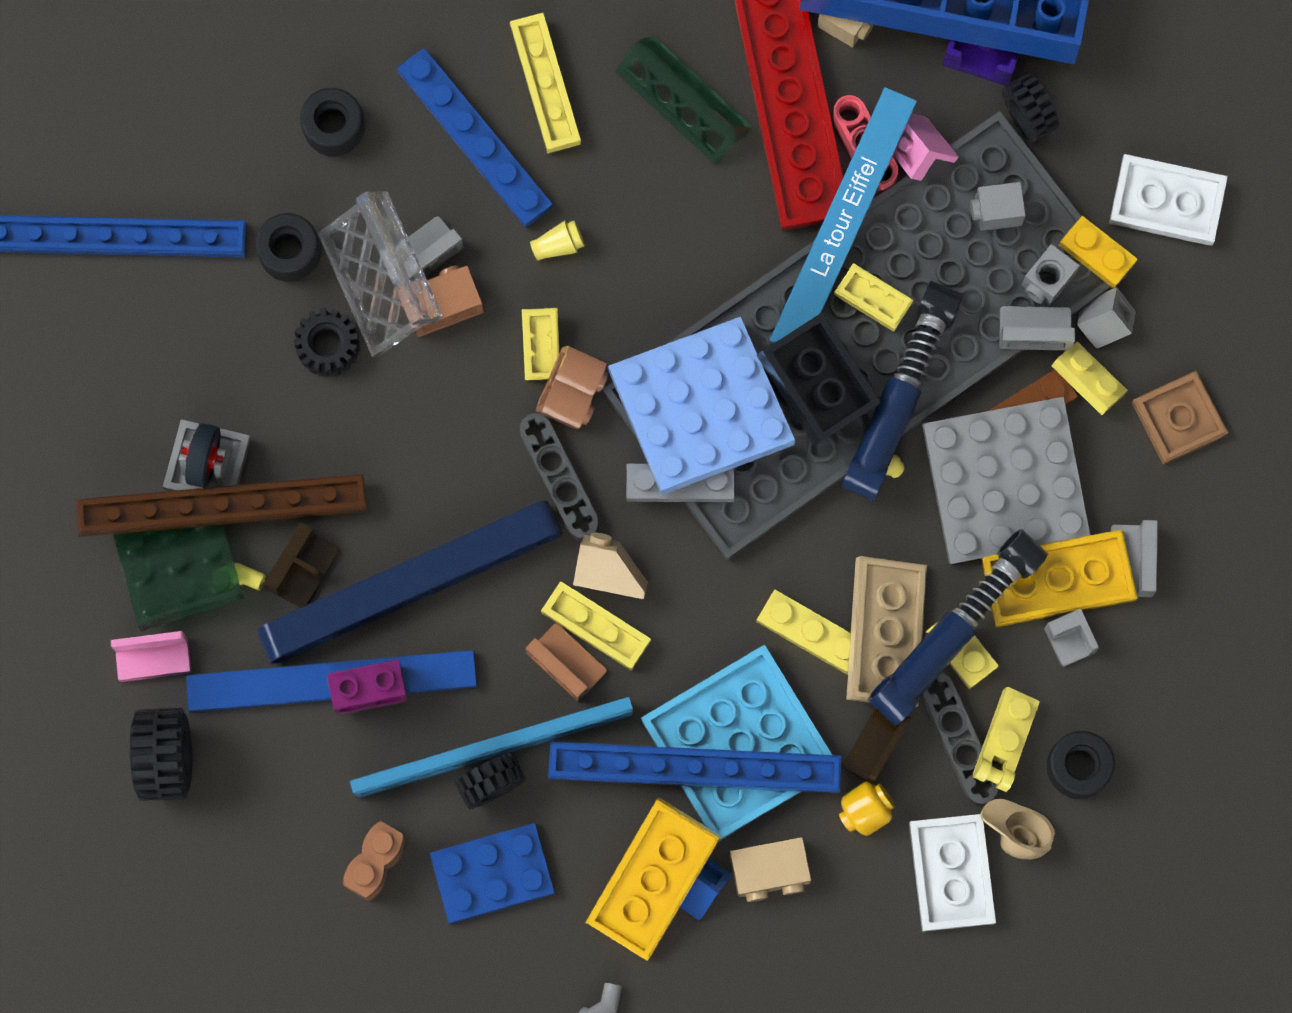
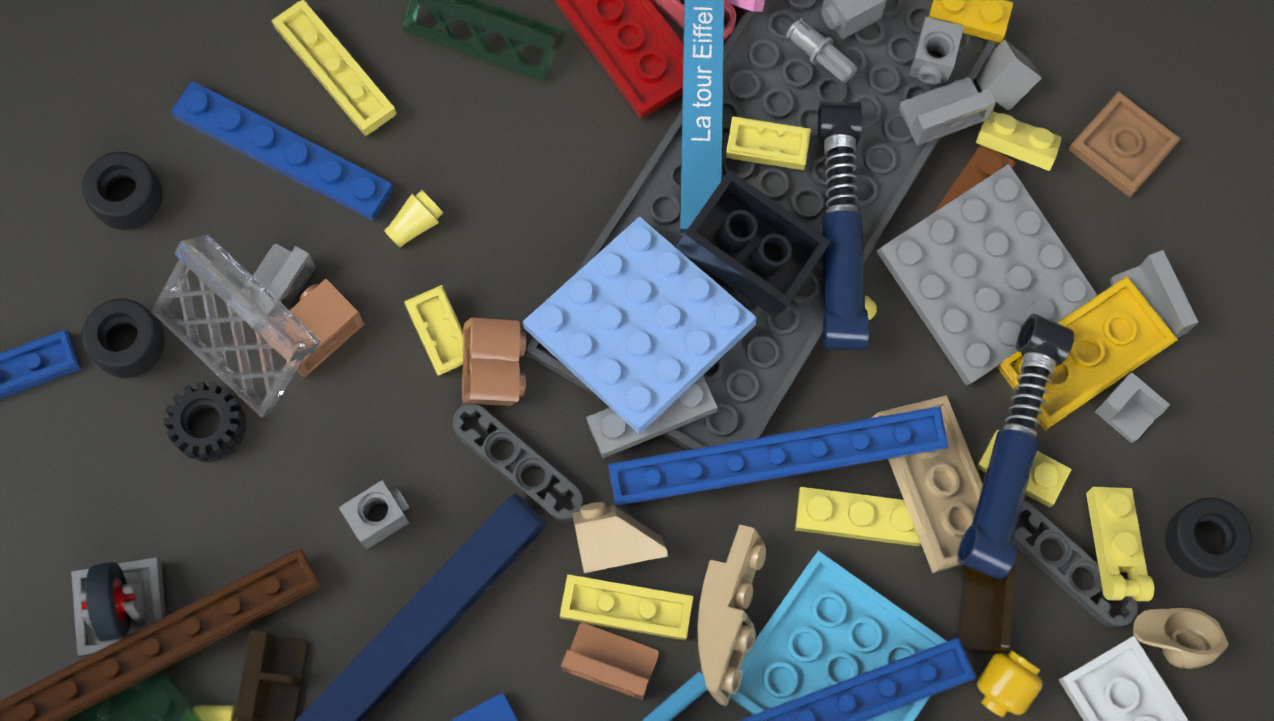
camera: 25 degrees left, 5 degrees down
(418, 462) = (357, 512): none -> light grey brick
(662, 671) = (723, 626): none -> tan slope
(765, 557) = (778, 456): none -> blue tile
(955, 235) = (821, 50): none -> light grey axle

